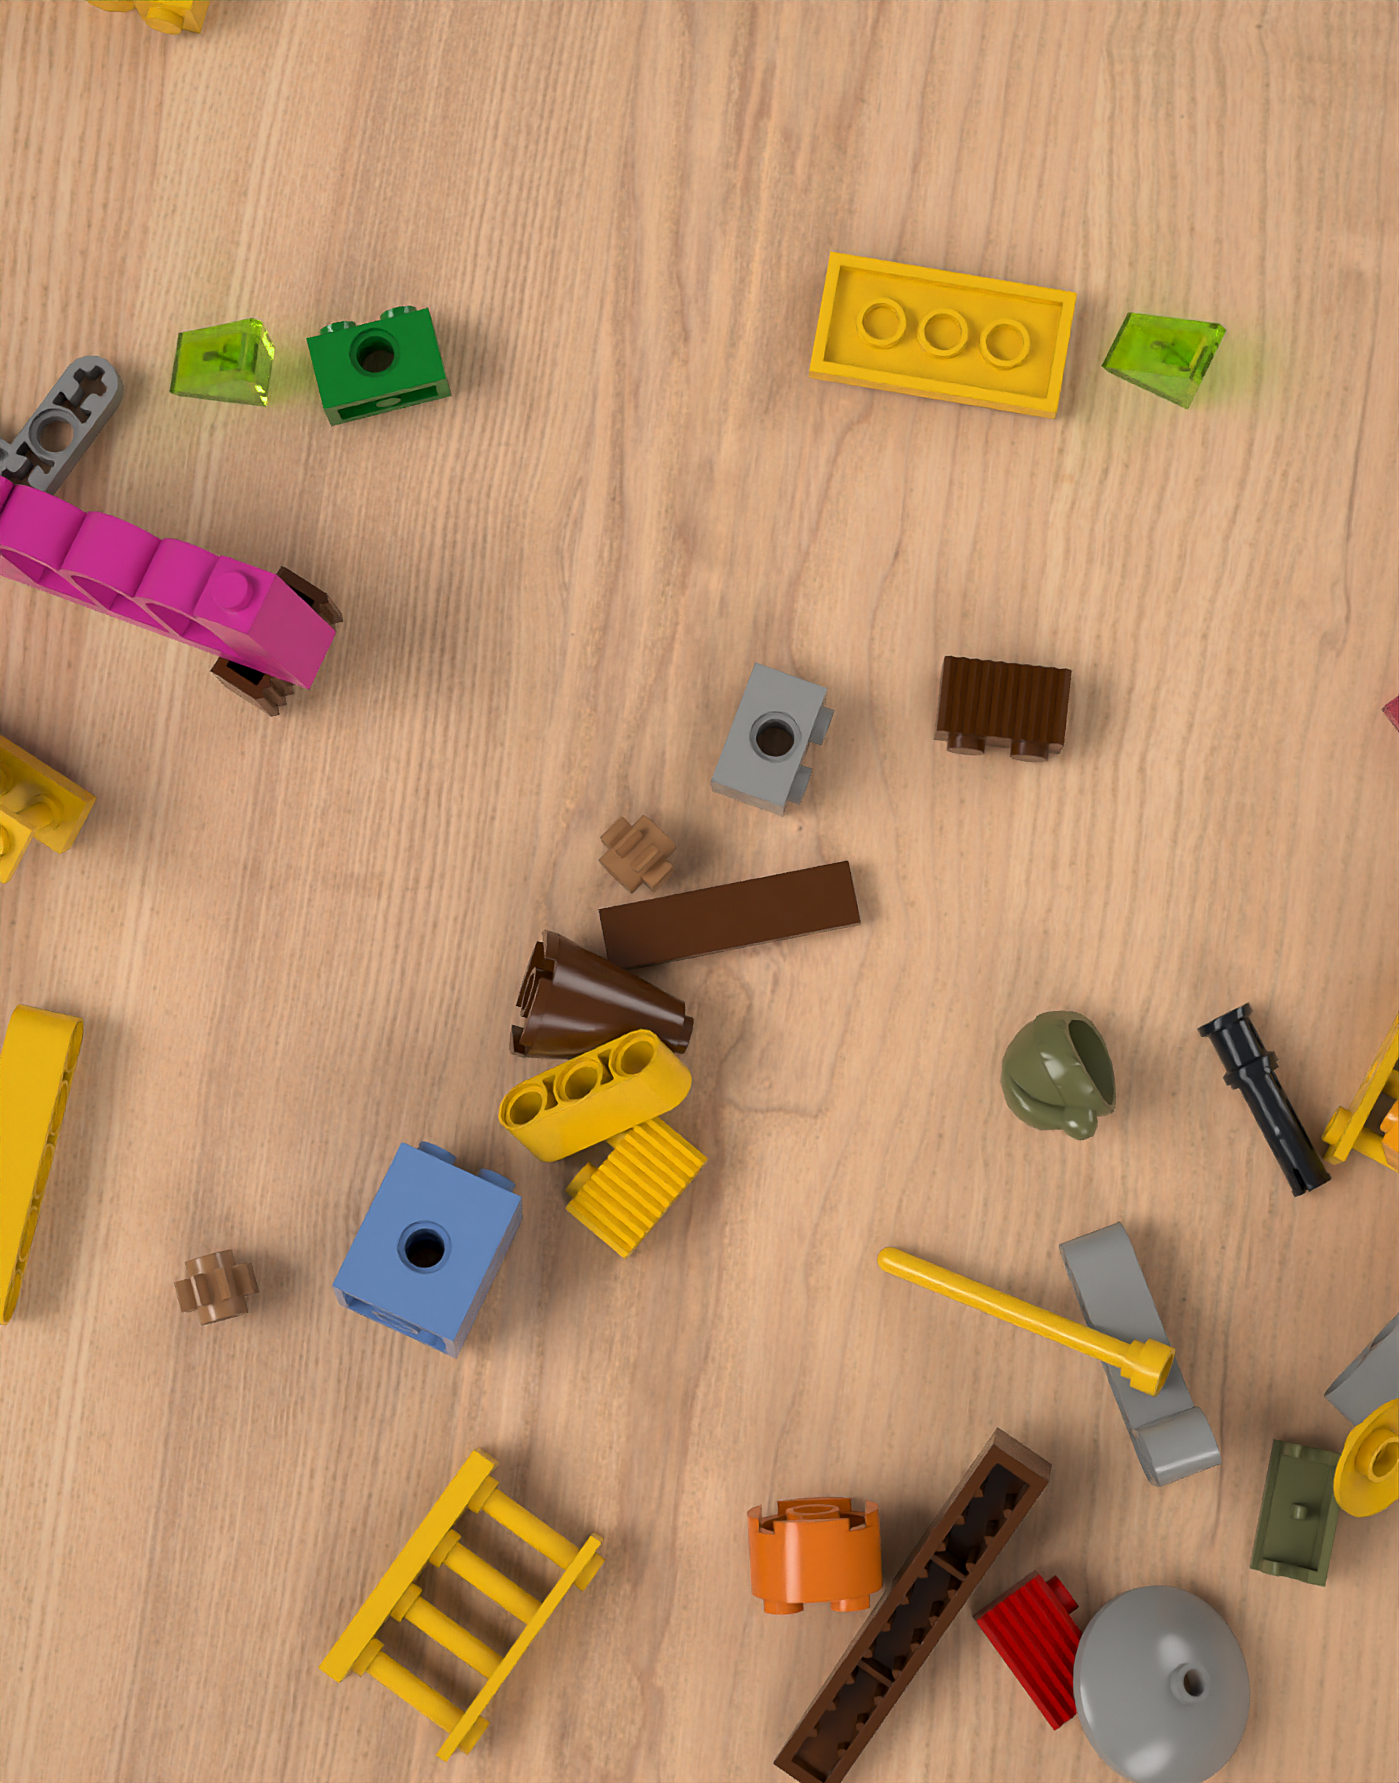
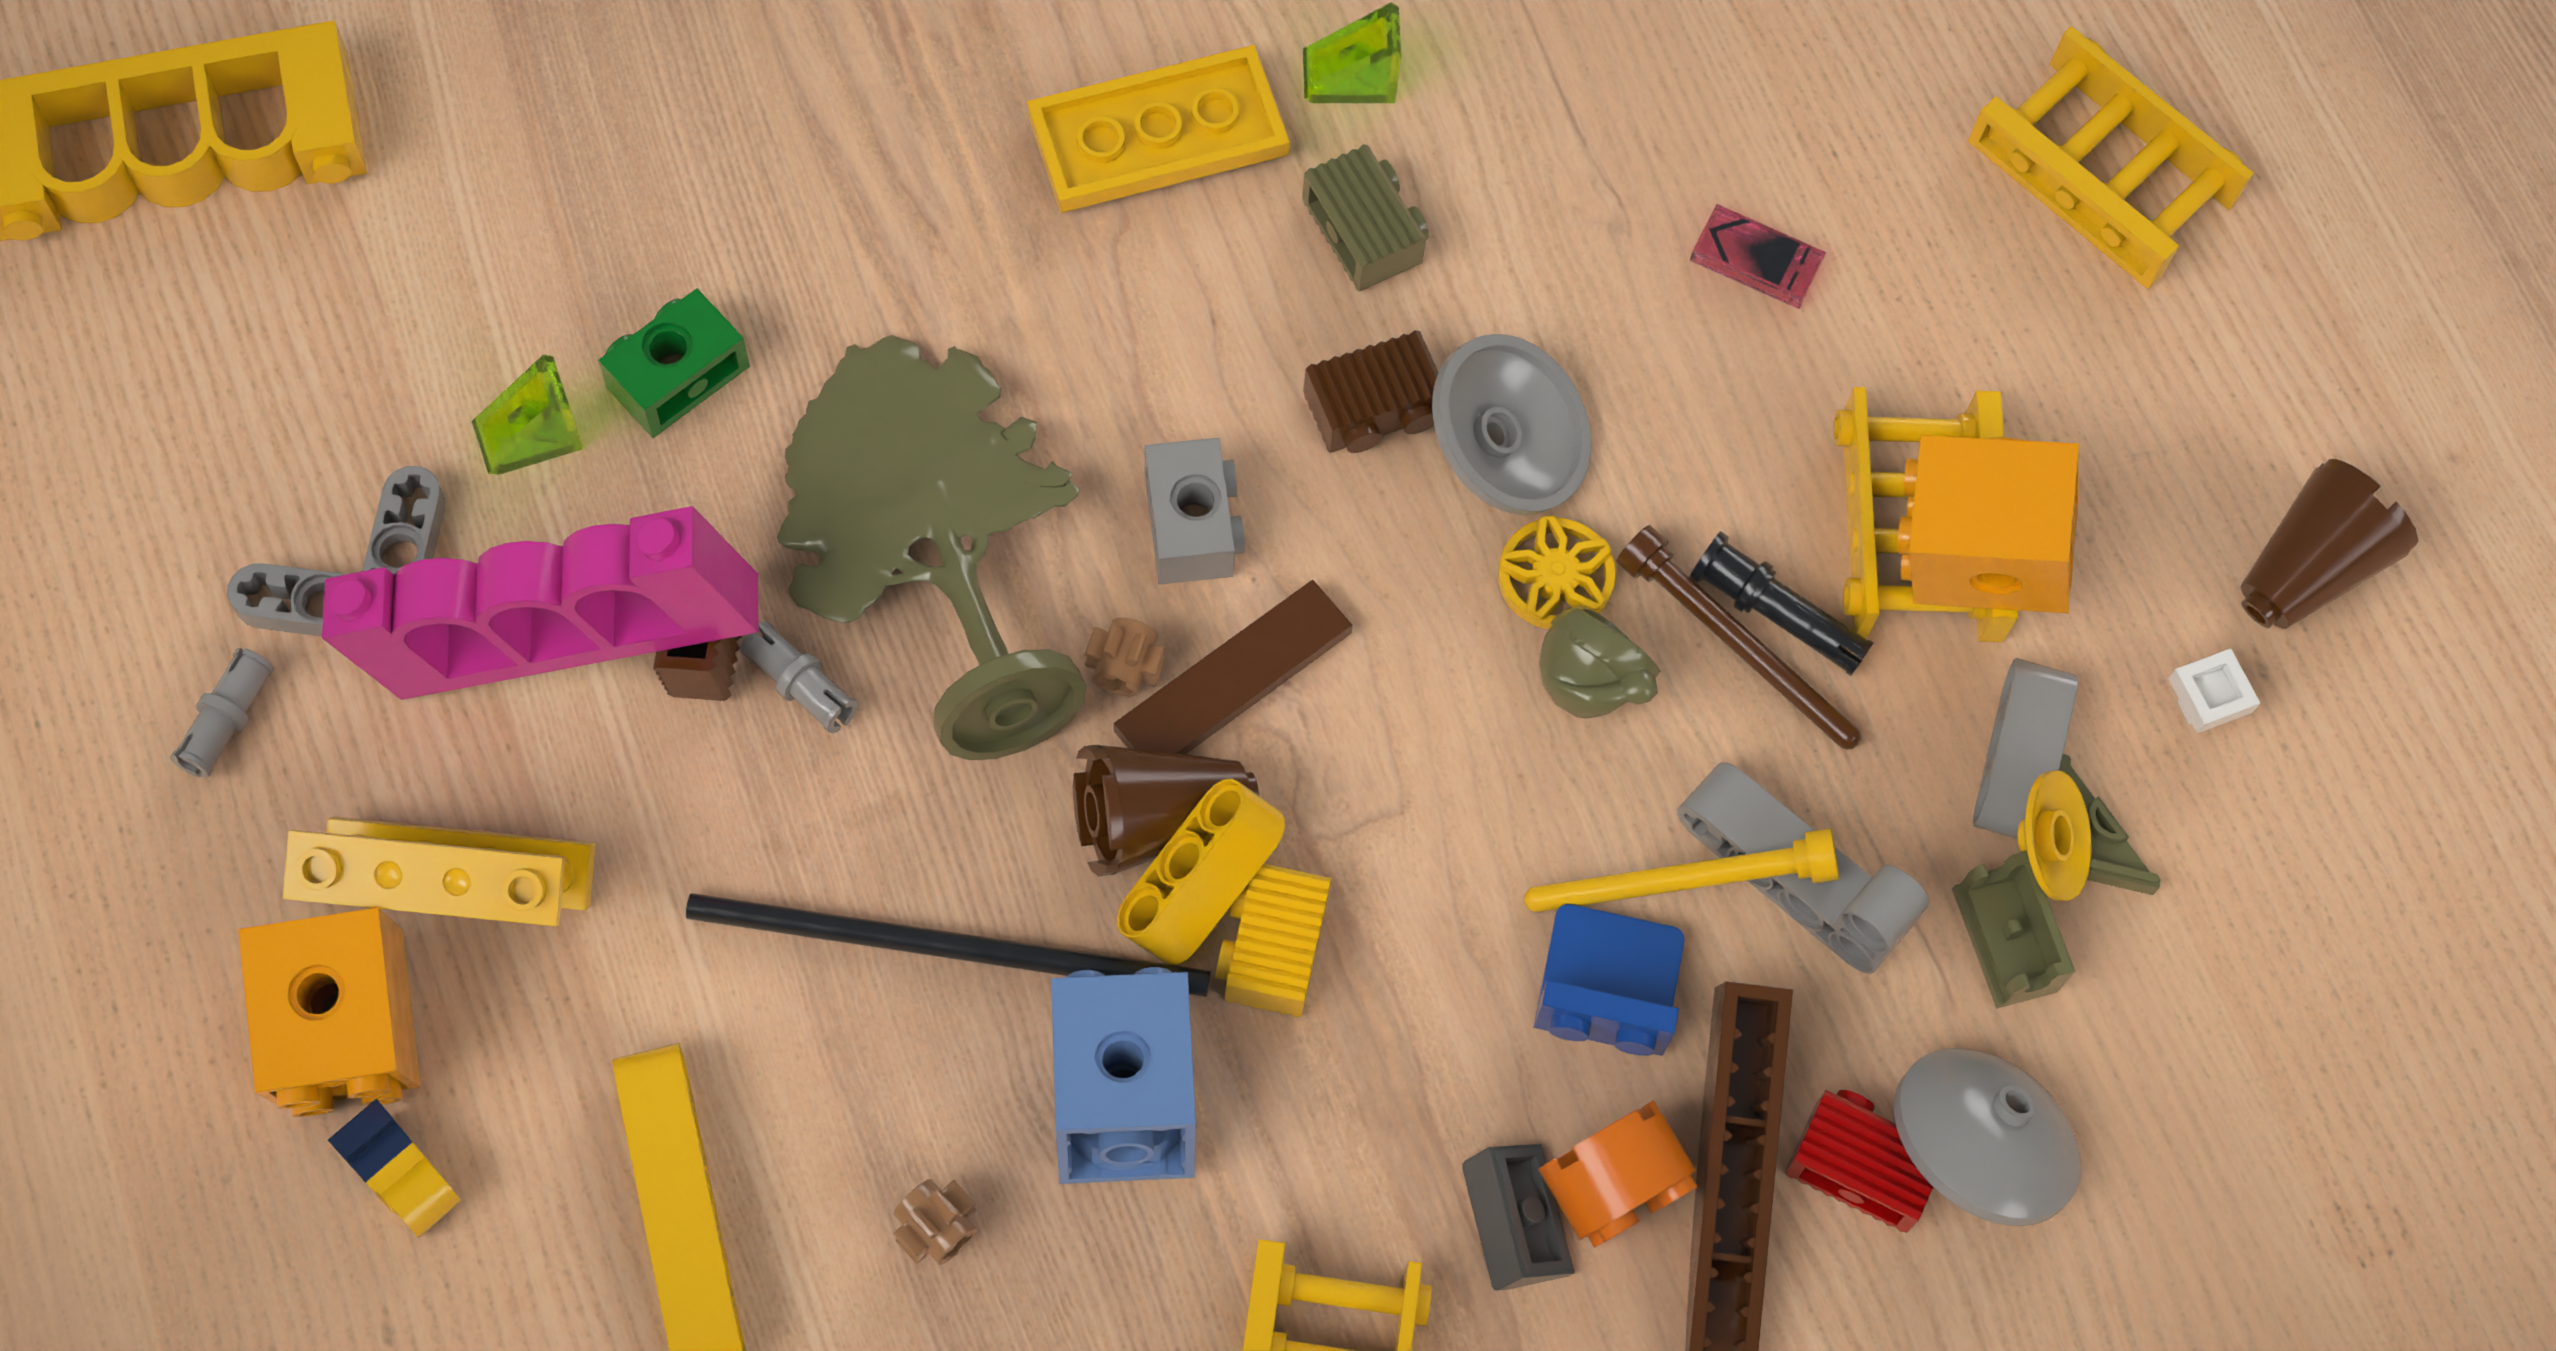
camera: 40 degrees left, 15 degrees down
(345, 729) = (799, 677): none -> light grey pin
(355, 1041) = (922, 940): none -> black piece
(539, 566) = (906, 458): none -> olive plant
(712, 1534) = (1516, 1217): none -> dark grey slope
(911, 1370) = (1611, 980): none -> blue bracket
(1078, 960) = (1555, 571): none -> yellow wheel
(1088, 522) = (1365, 217): none -> olive brick
(1134, 811) = (1511, 424): none -> light grey dish
(1170, 995) = (1649, 558): none -> reddish brown piece

